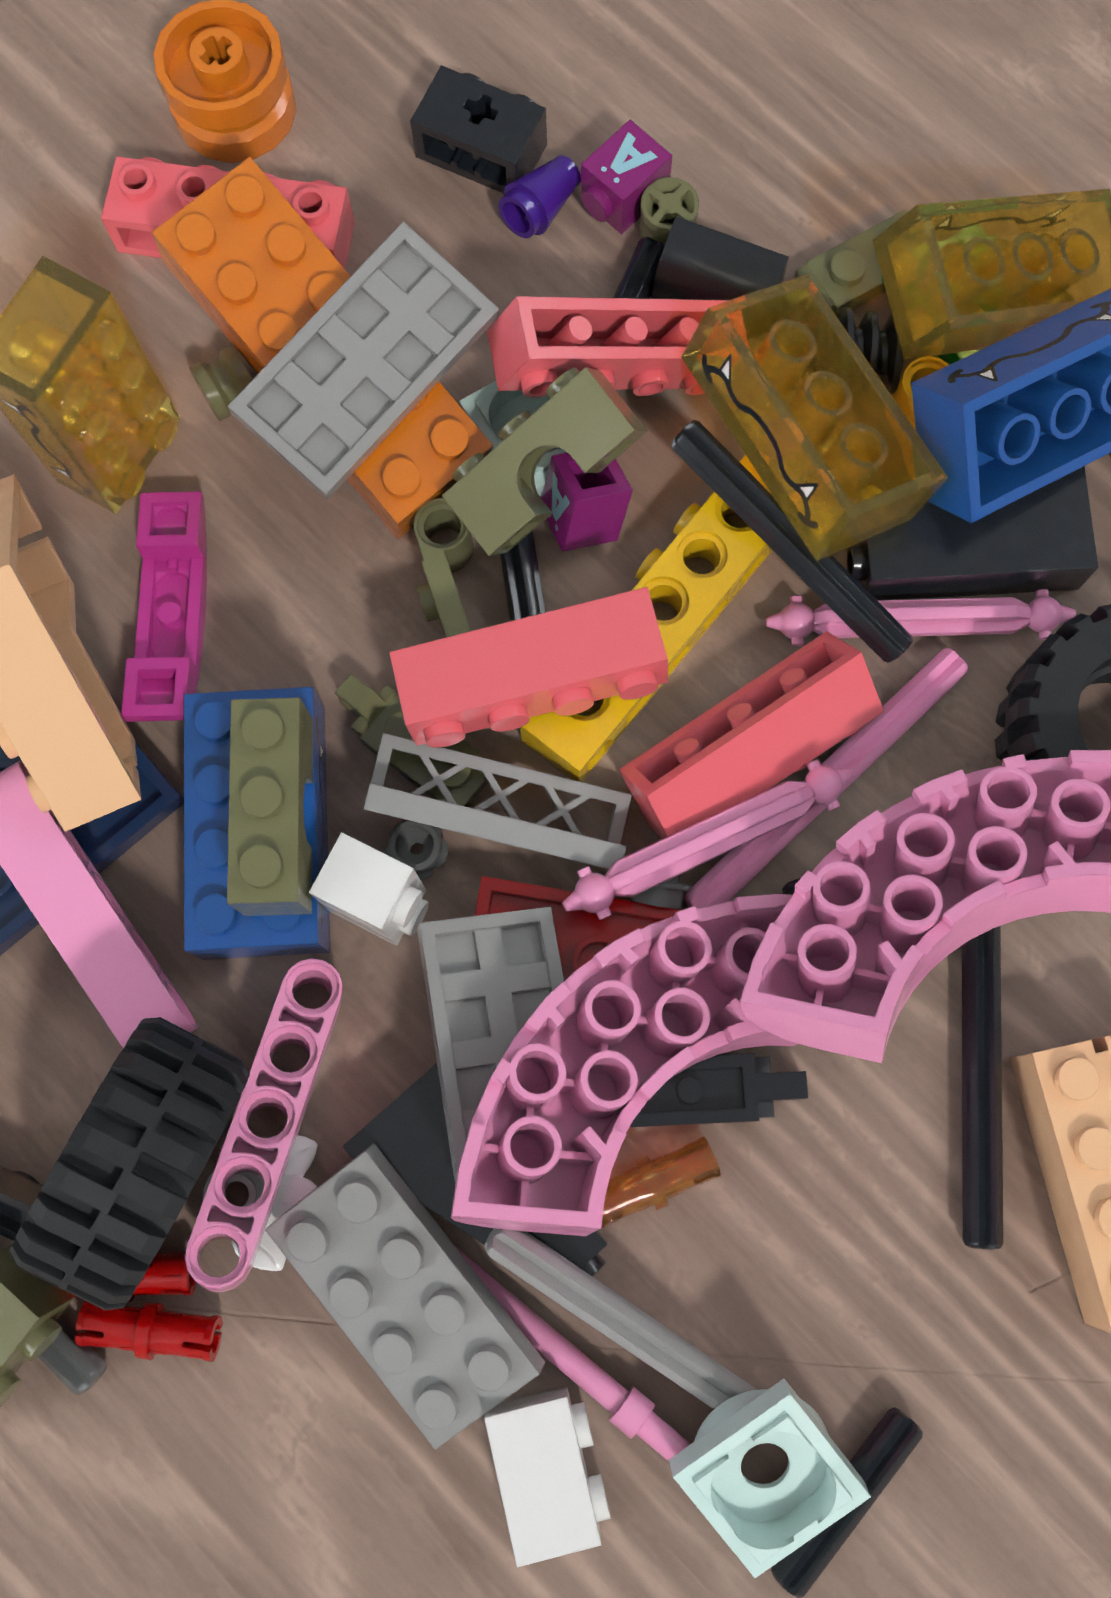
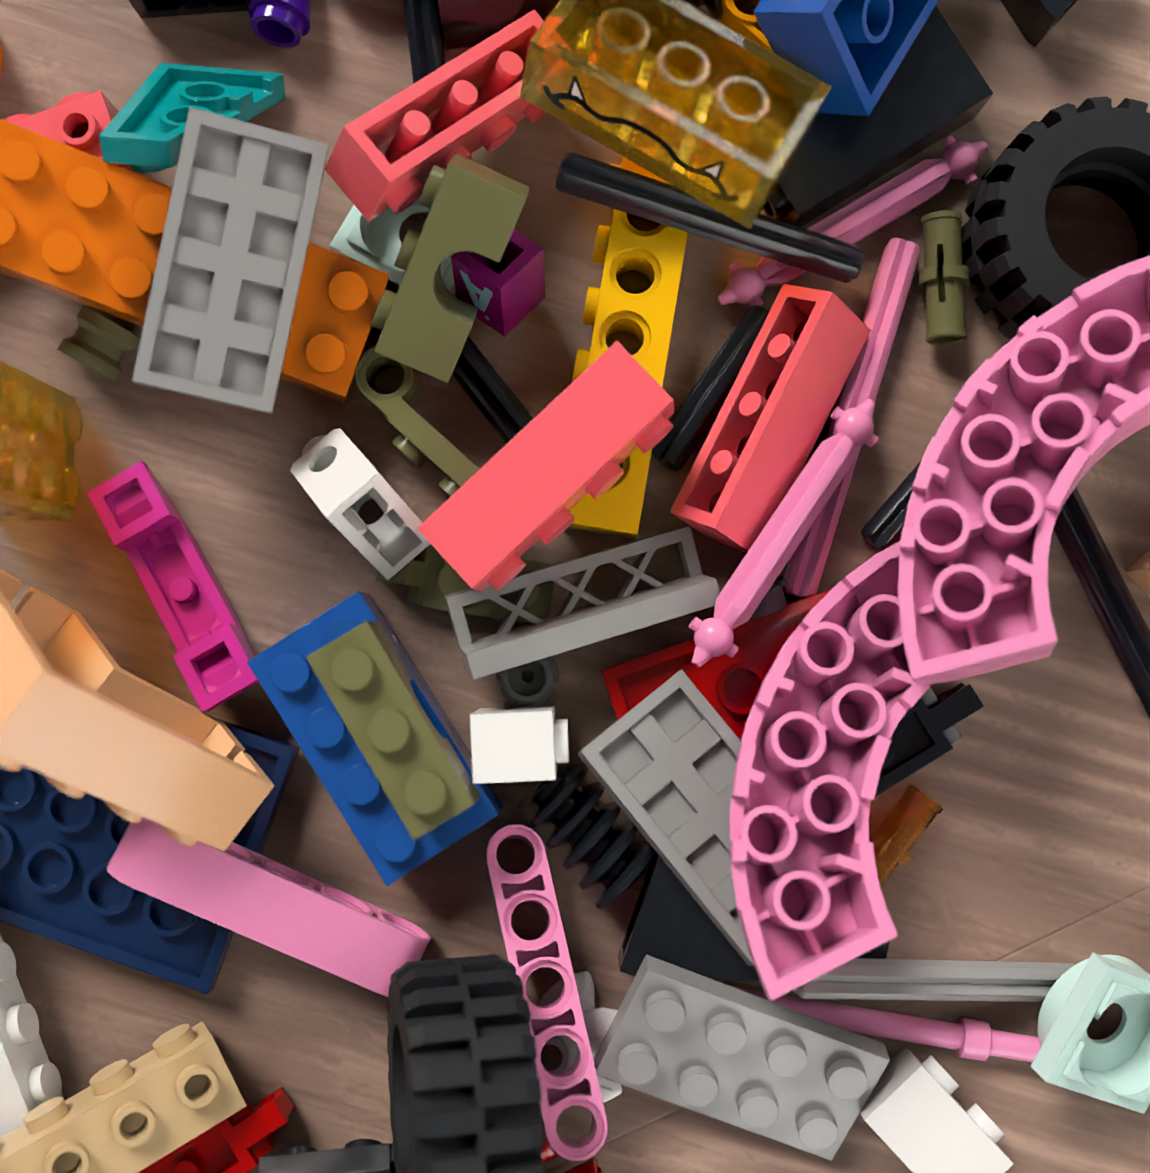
camera: 30 degrees left, 10 degrees up
(356, 598) = (340, 483): none -> white torso
(362, 227) = (153, 121): none -> teal wing
(387, 1009) = (589, 832): none -> black piece
(679, 709) = (709, 393): none -> black axle
(976, 706) = (944, 313): none -> olive pin

